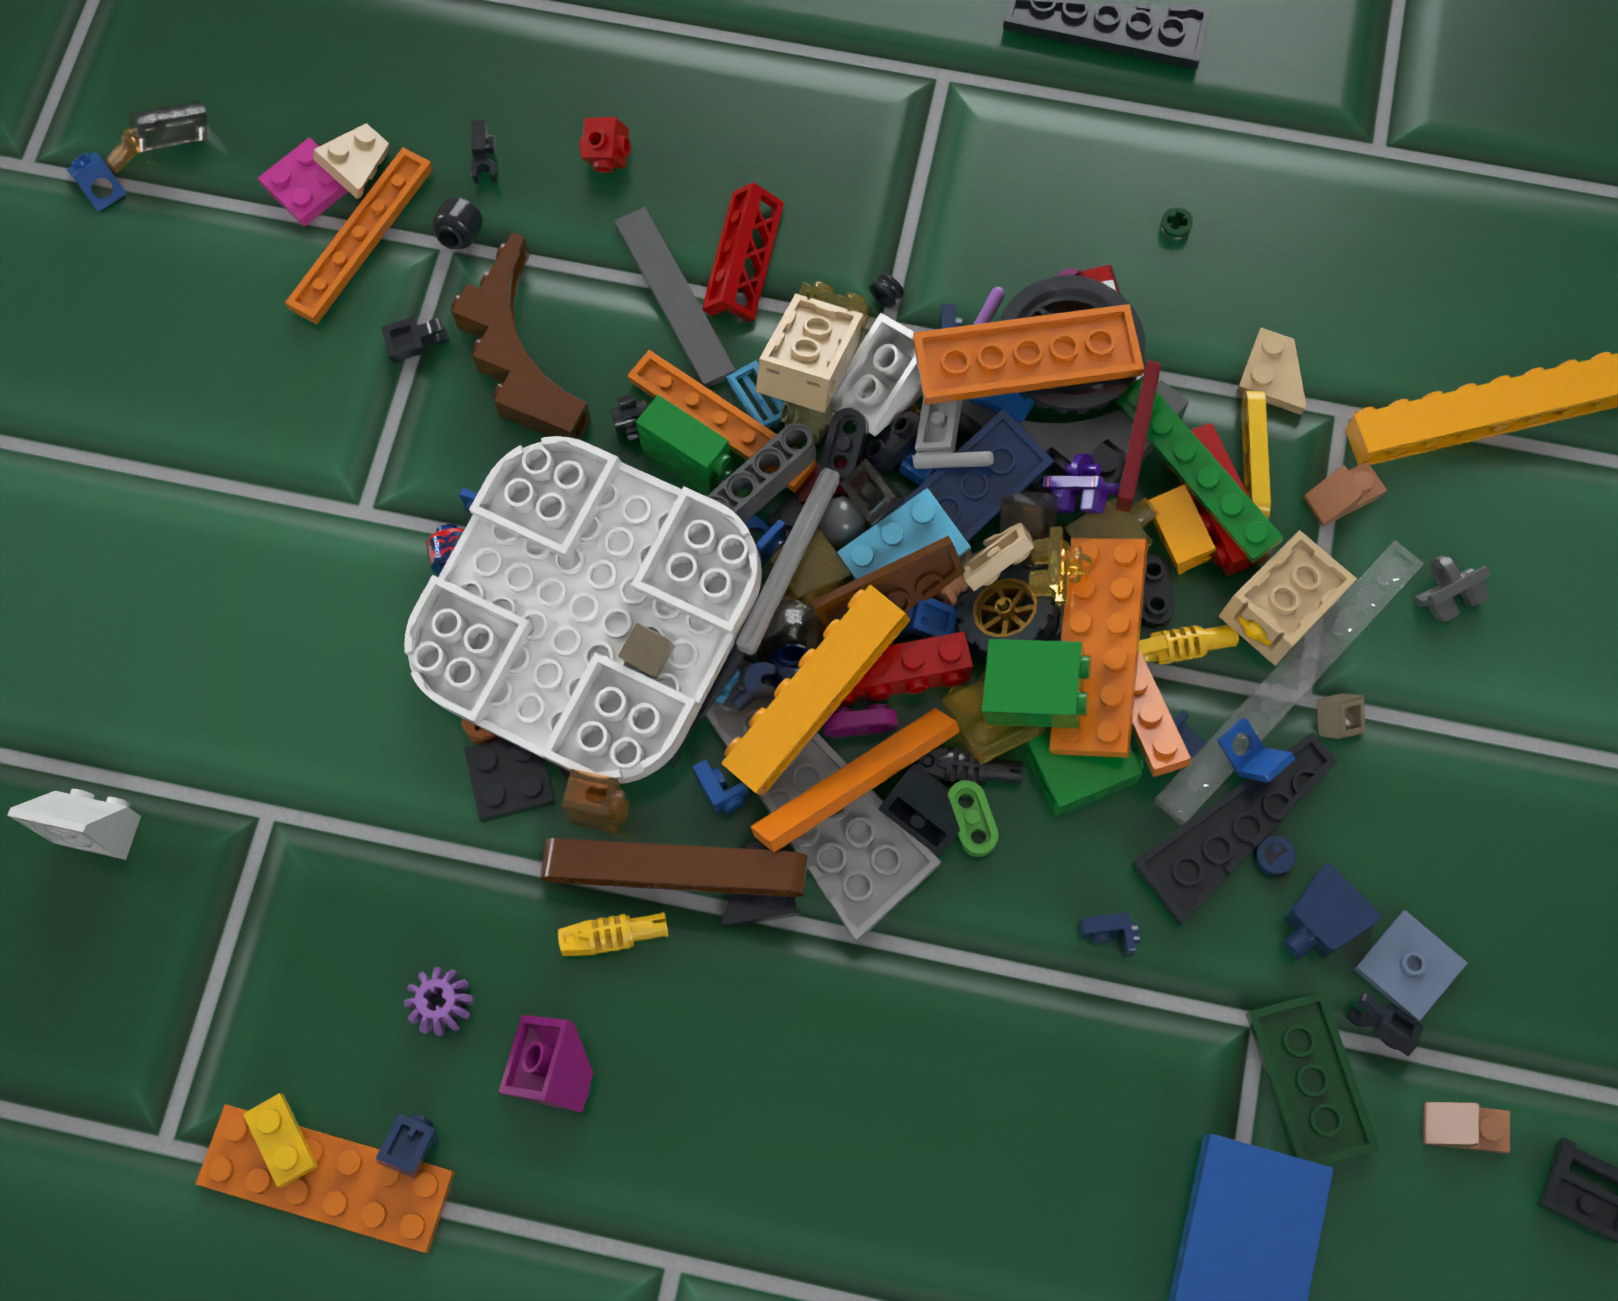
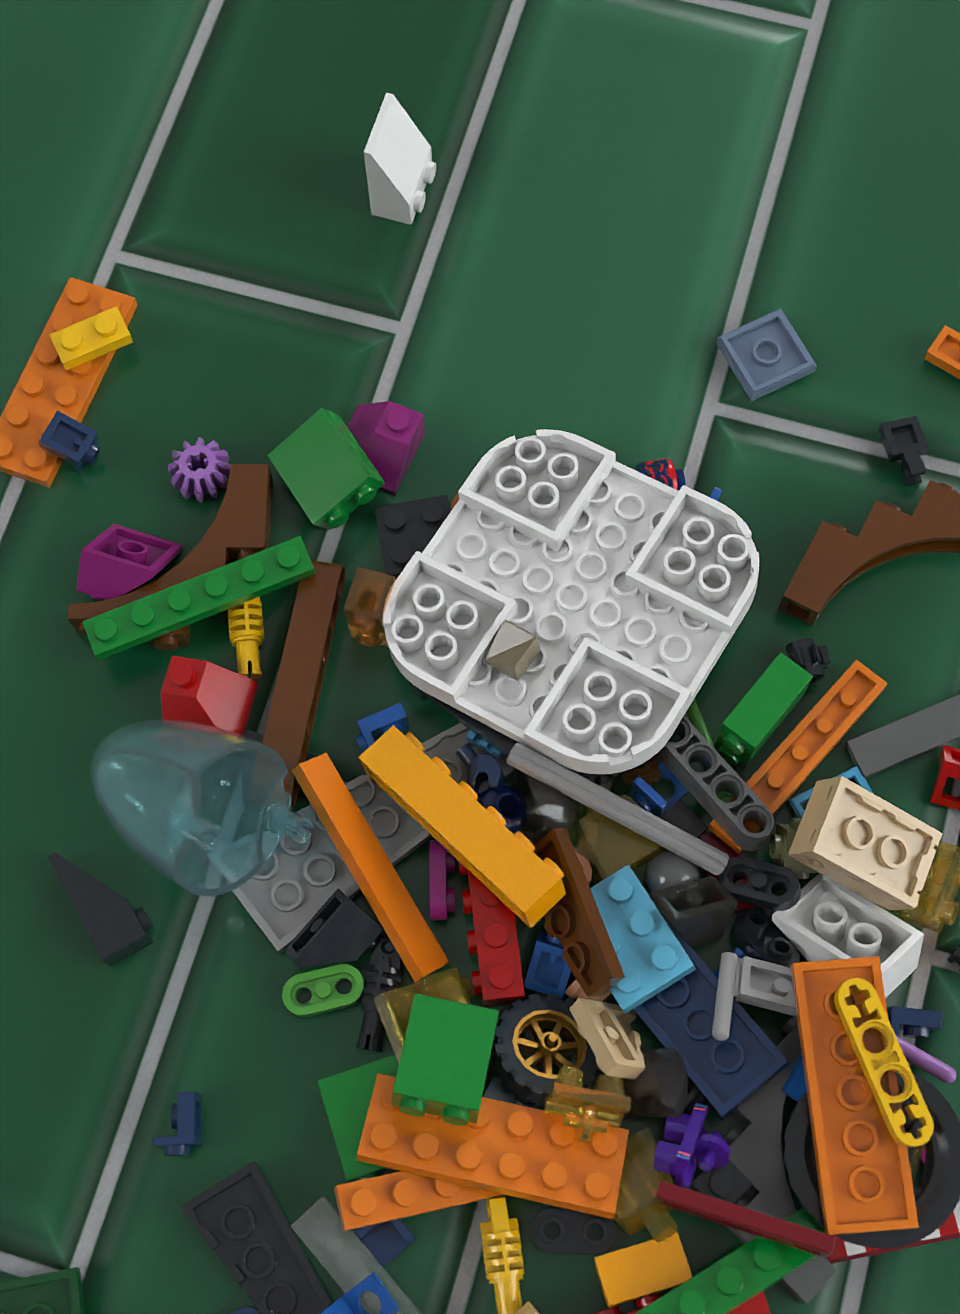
camera: 95 degrees right, 0 degrees up
(310, 459) = (766, 354): none -> sand blue plate
(407, 821) = (389, 439): none -> magenta slope
(442, 863) = (326, 469): none -> green brick
(511, 950) = (237, 532): none -> reddish brown arch
(592, 974) = (198, 598): none -> green plate
(703, 959) = (207, 694): none -> red slope
(809, 948) = (195, 801): none -> clear light blue windscreen
(923, 1030) = (108, 917): none -> black slope
(1000, 321) = (889, 1059): none -> yellow beam

